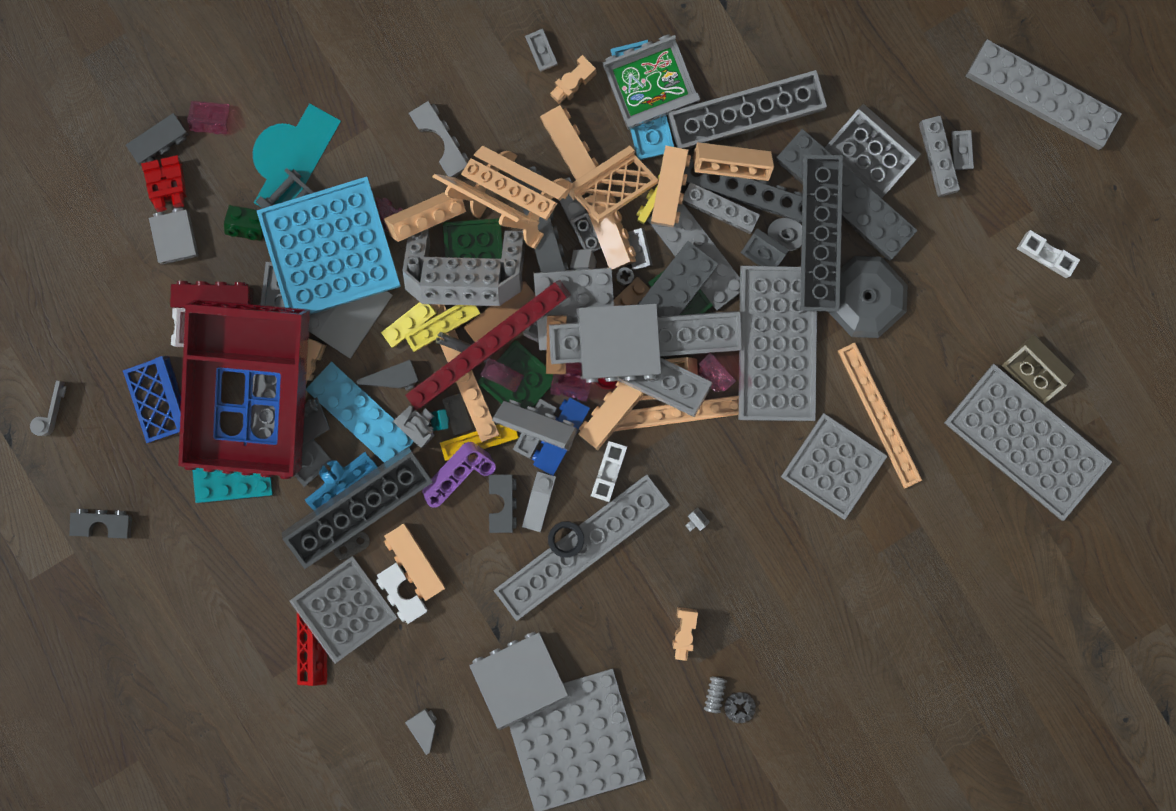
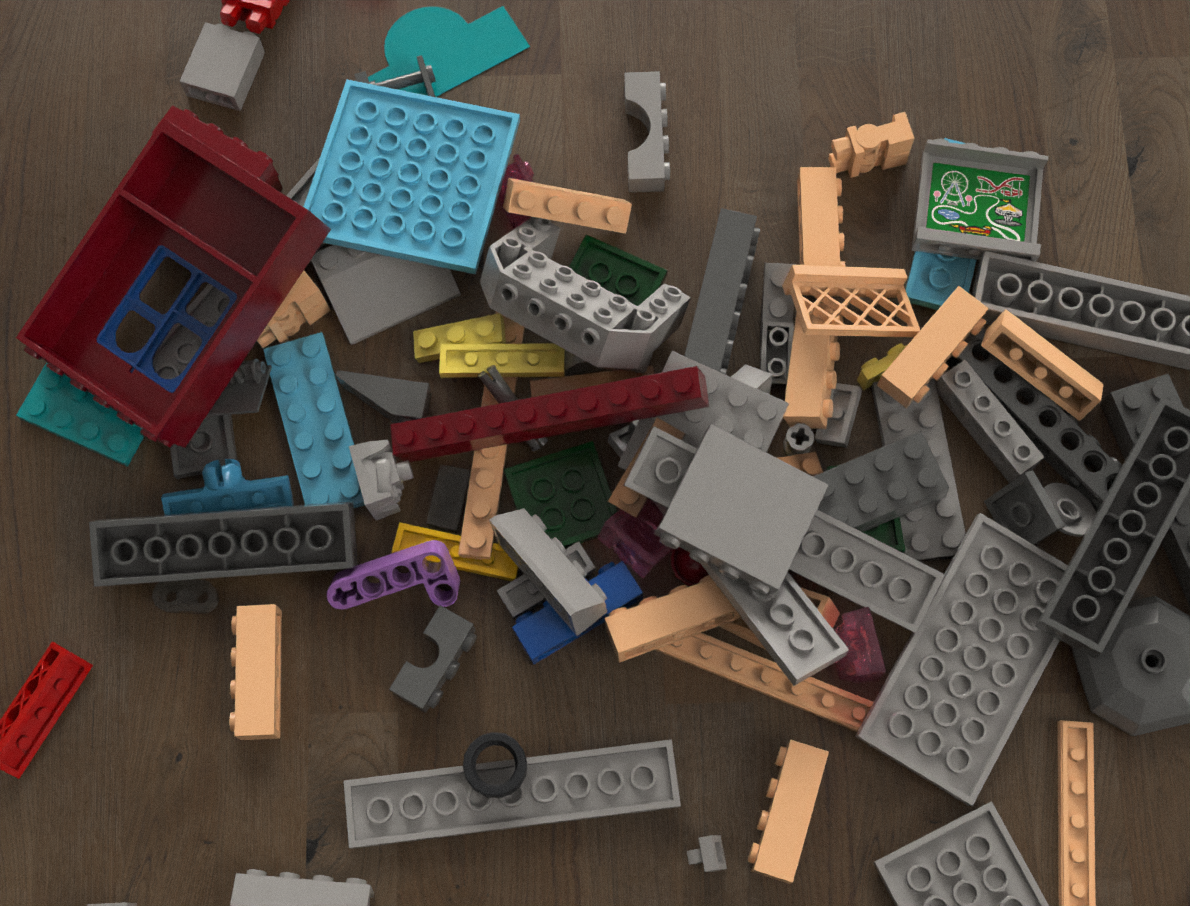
camera: 30 degrees right, 15 degrees down
(170, 389) = (42, 225): blue fence -> none
(242, 223) = (317, 96): dark green bracket -> none
(343, 609) = (109, 679): light grey plate -> none
(408, 608) = (207, 679): white arch -> none
(440, 420) = (418, 491): teal plate -> none
(488, 177) = (698, 229): light nougat piece -> none
(502, 375) = (543, 474): clear pink slope -> none
(538, 501) = (490, 687): light grey slope -> none
(541, 50) = (848, 94): light grey plate -> none
(608, 471) = (615, 705): white arch -> none
(725, 476) = (789, 811): none -> light nougat brick

